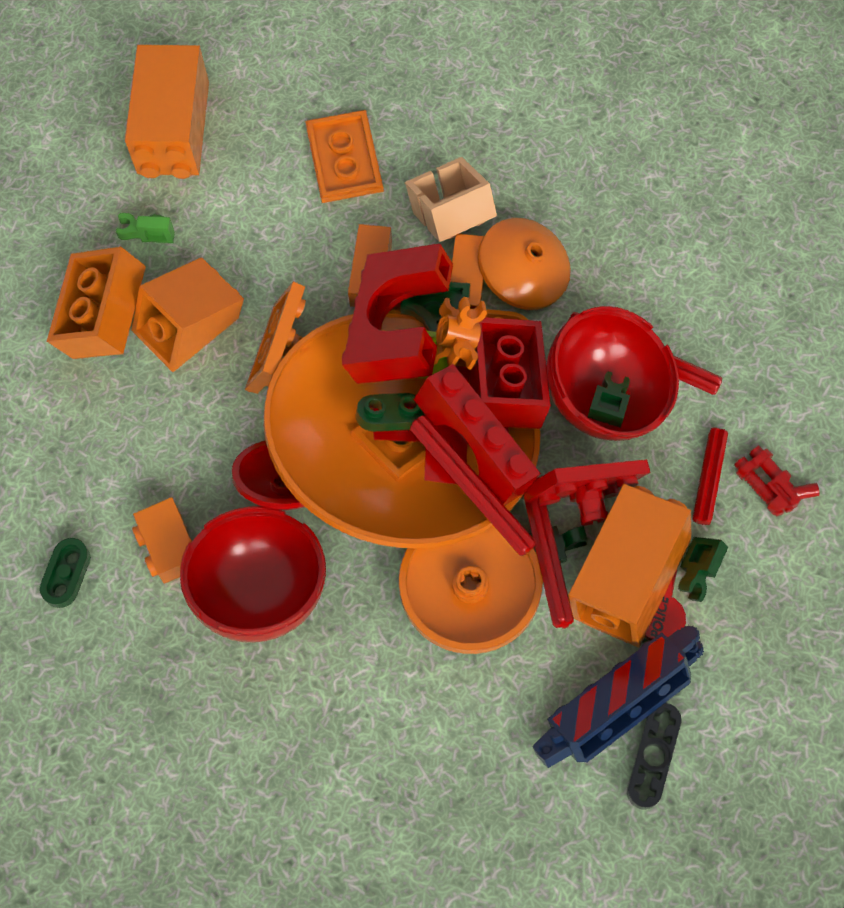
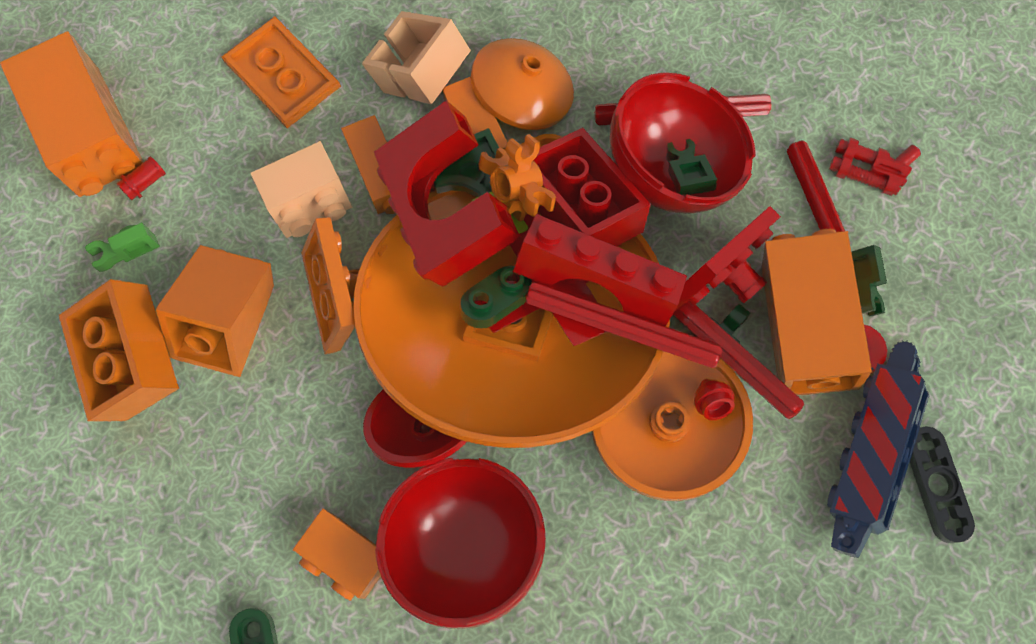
camera: 30 degrees left, 5 degrees up
(189, 184) = (140, 178): none -> red pin
(300, 255) = (301, 189): none -> light nougat piece
(510, 584) = (714, 399): none -> red plate

